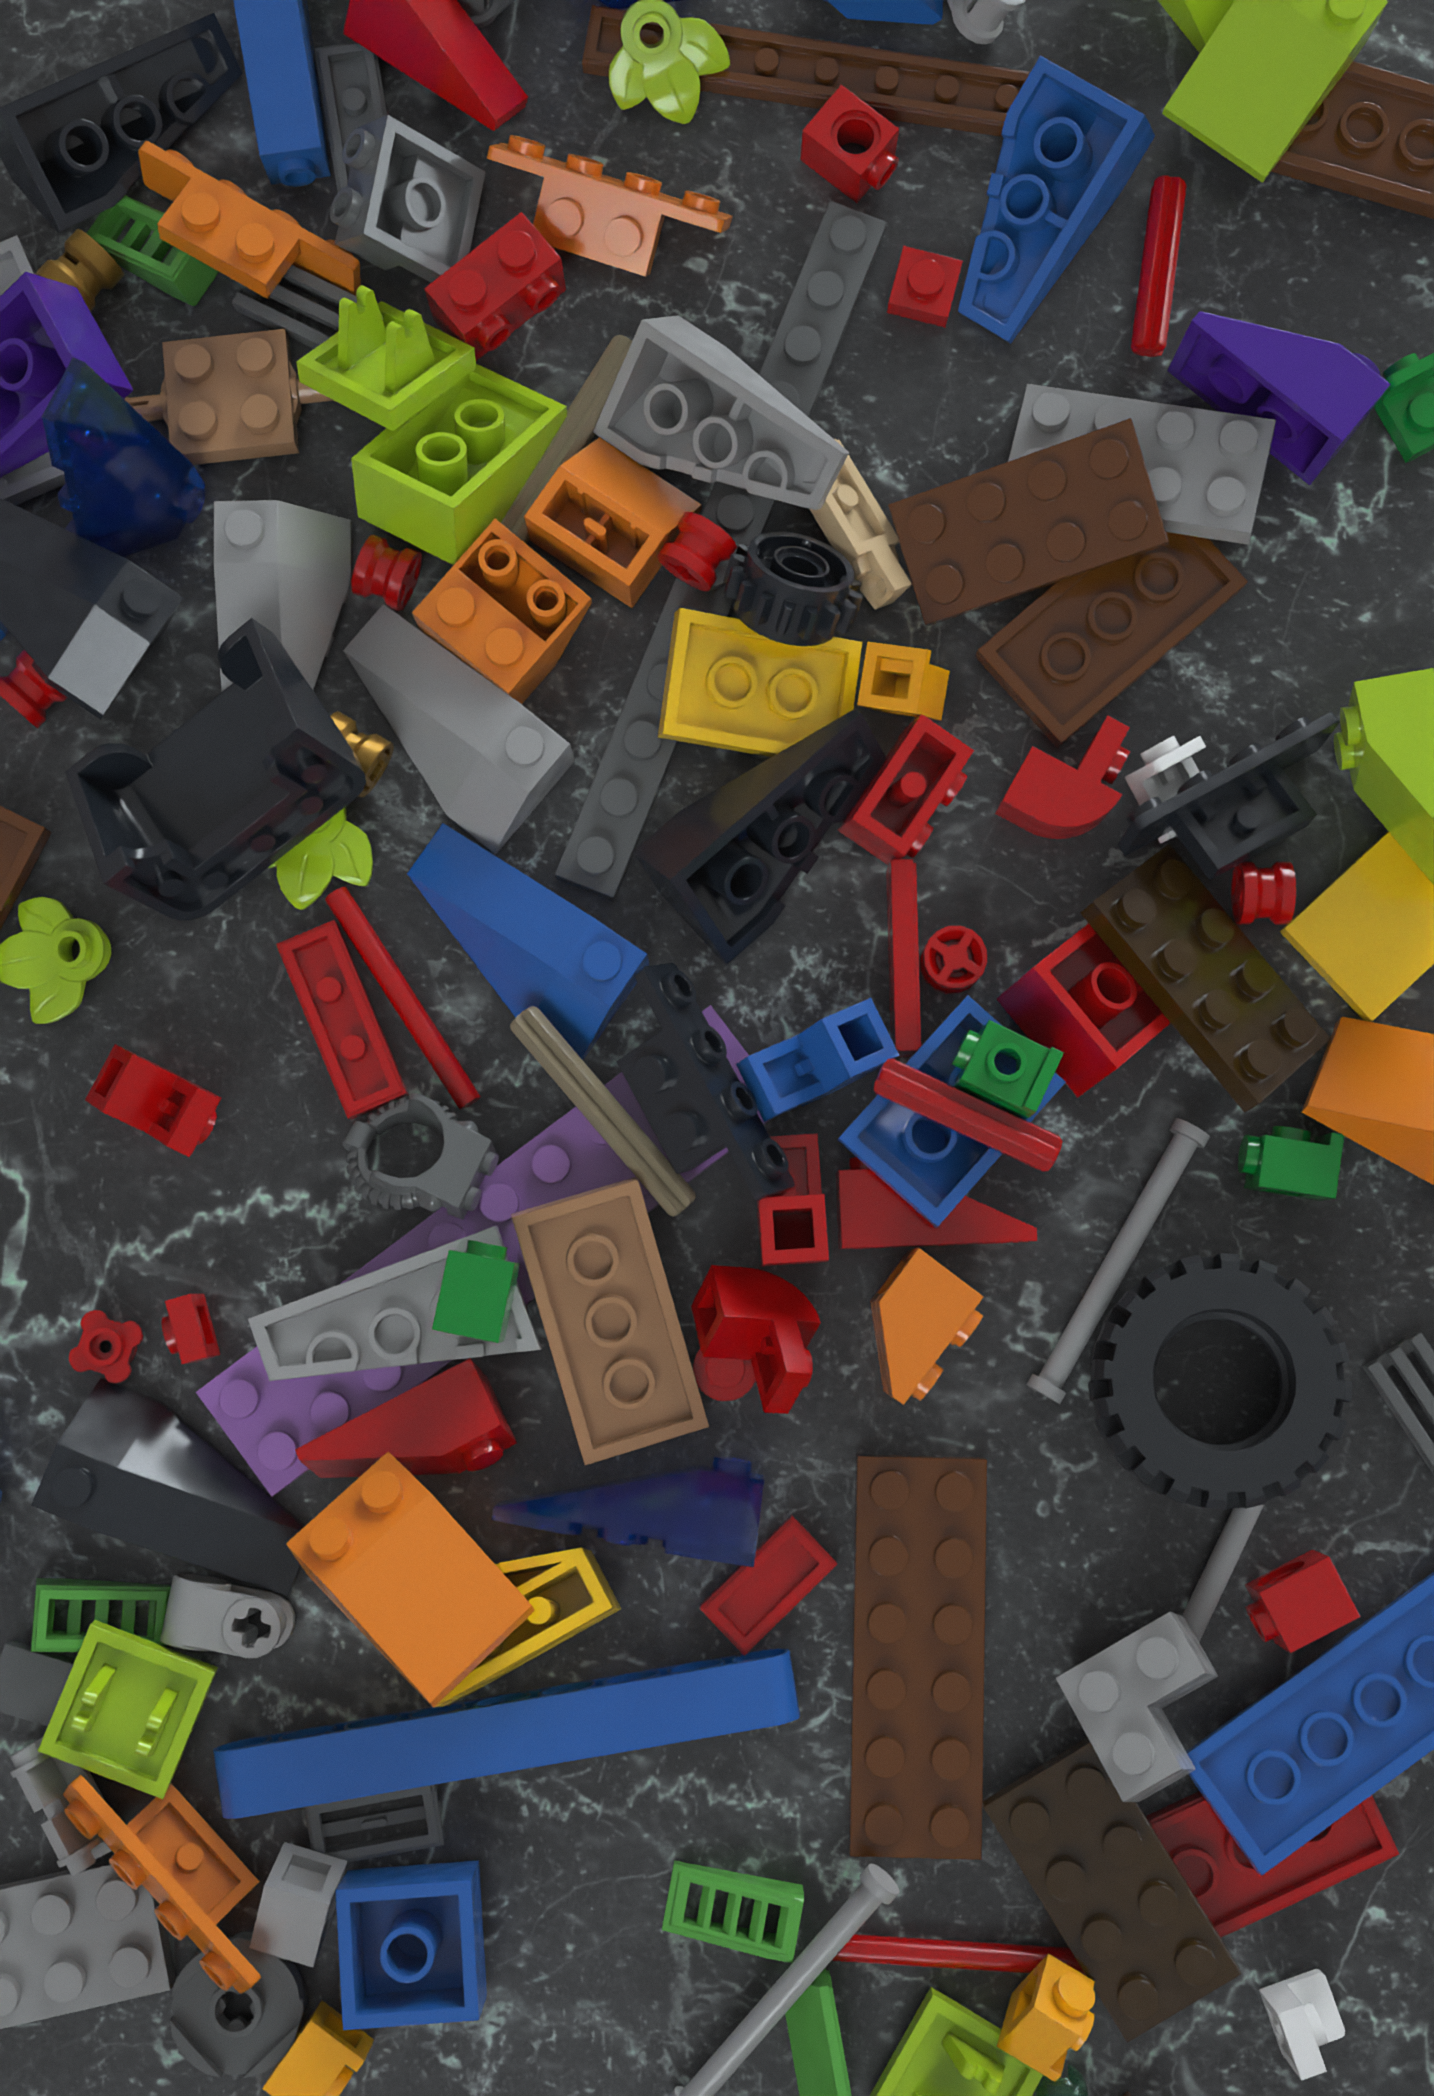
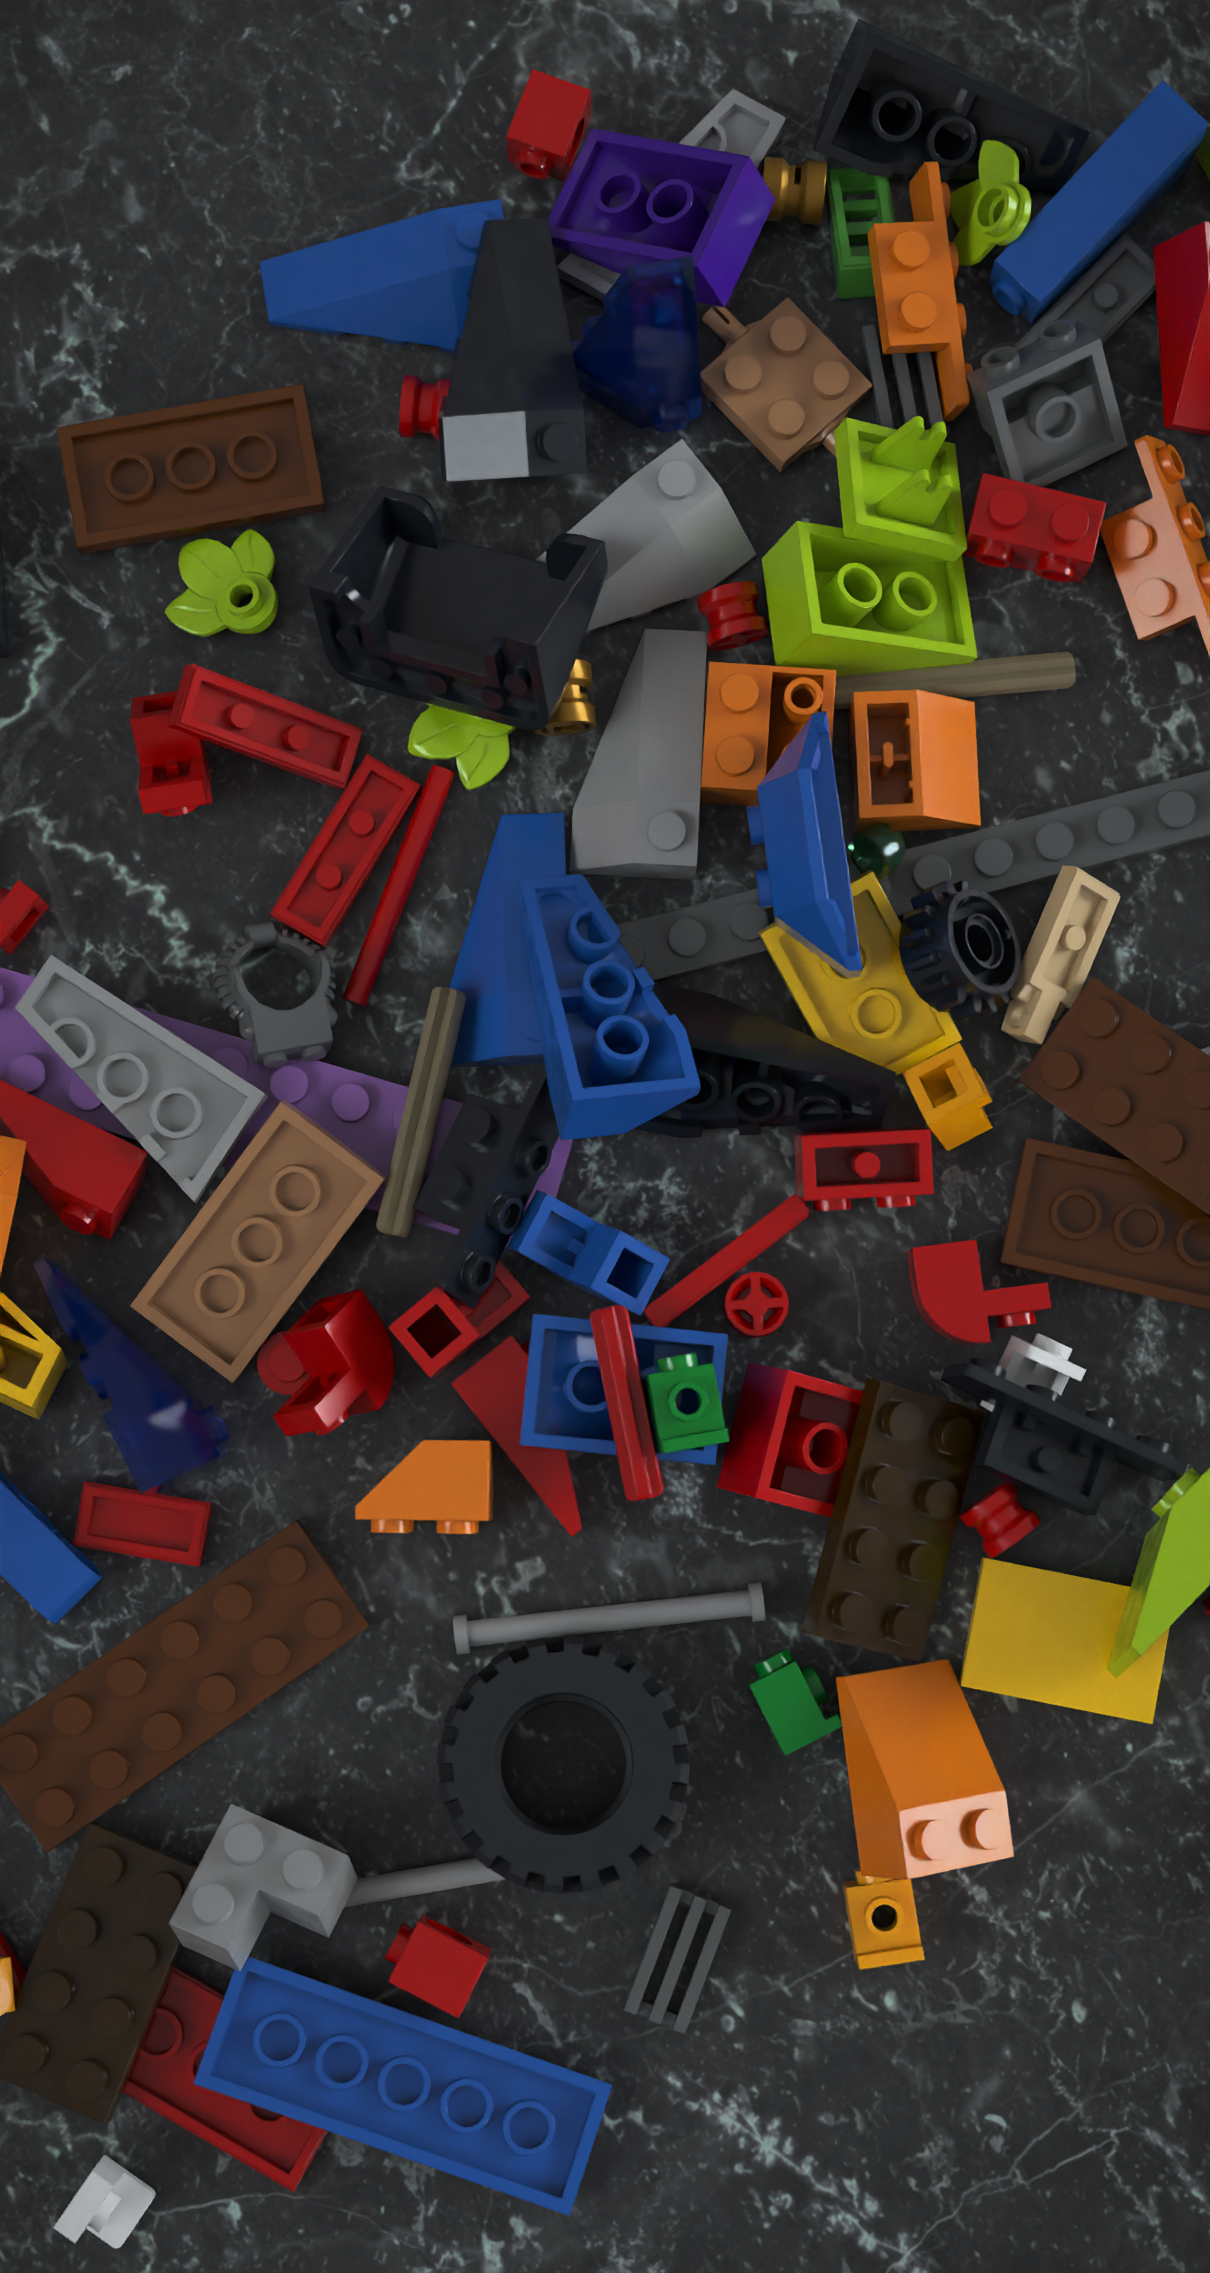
camera: 55 degrees right, 0 degrees up
(191, 1008) = (264, 727): none -> red tile
(215, 126) = (992, 207): none -> lime plate
(476, 1292) = (199, 1117): green brick -> none
(628, 644) = (806, 850): none -> blue wedge
(650, 912) = (602, 1030): none -> blue wedge
(652, 599) = (872, 841): none -> clear green hinge
(697, 551) = (932, 851): red wheel -> none
(708, 414) = (1056, 779): light grey wedge -> none

